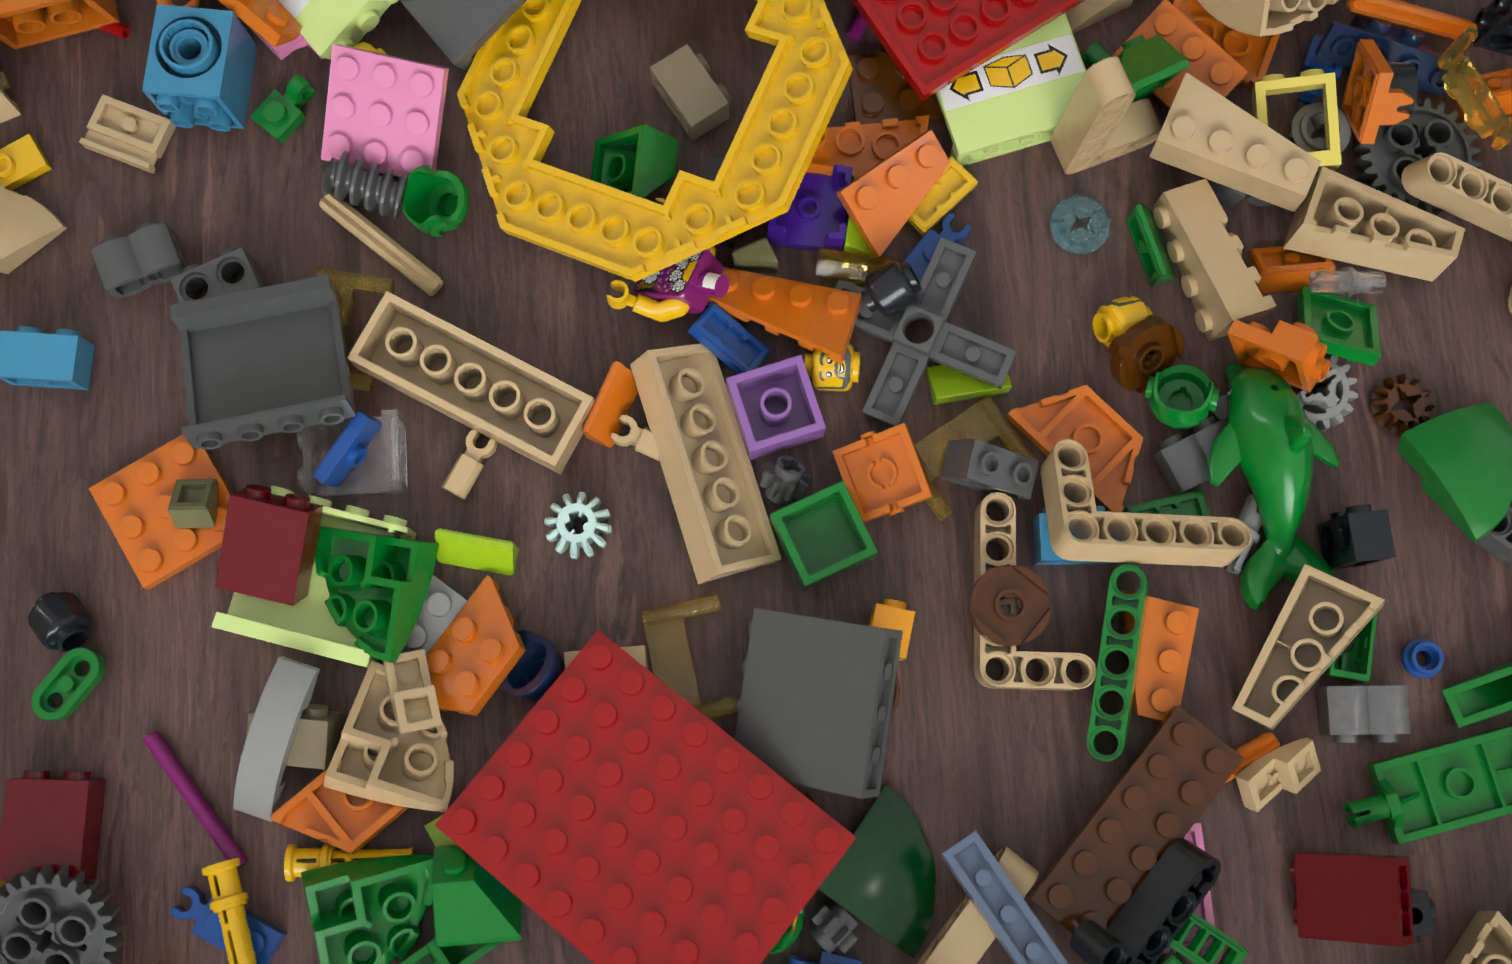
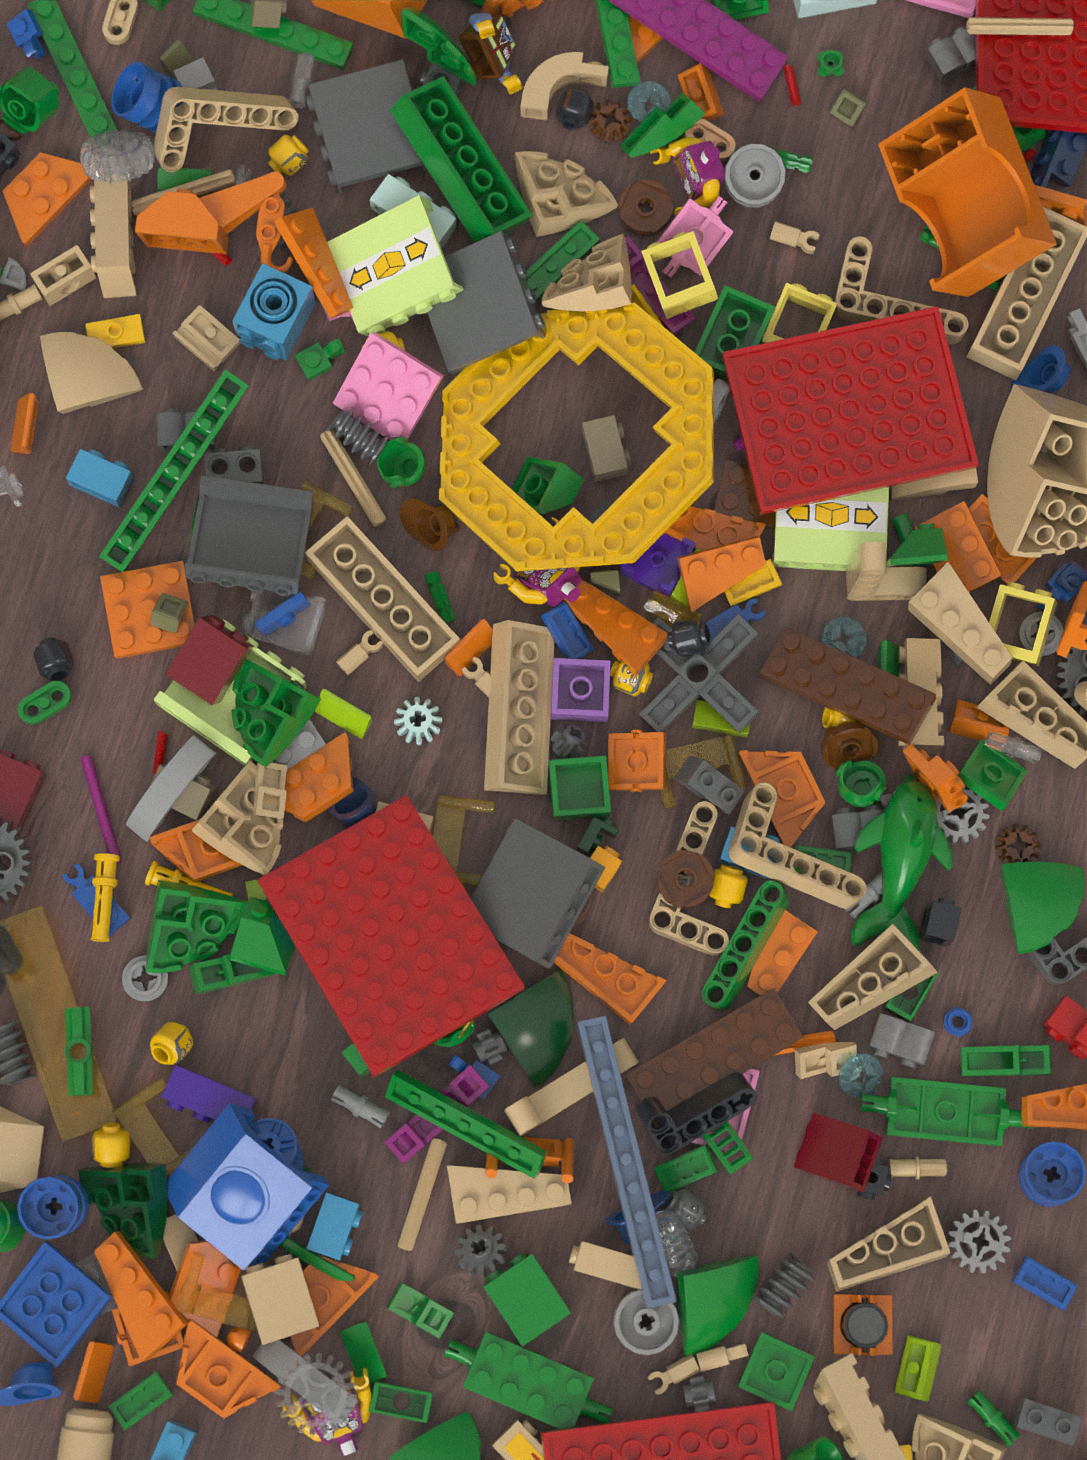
camera: 20 degrees right, 0 degrees up
(133, 312) = (174, 471): none -> green brick
(248, 687) = (160, 750): none -> red piece
(498, 264) = (428, 523): none -> reddish brown piece
(548, 354) = (440, 597): none -> green axle
(861, 595) = (592, 839): none -> dark green bracket
(962, 774) = (611, 980): none -> orange wing
(1066, 591) = (728, 886): none -> yellow head
(1118, 277) = (848, 685): none -> reddish brown plate
(1321, 776) = (852, 1069): none -> clear light blue gear
(1453, 871) = (917, 1167): none -> tan axle

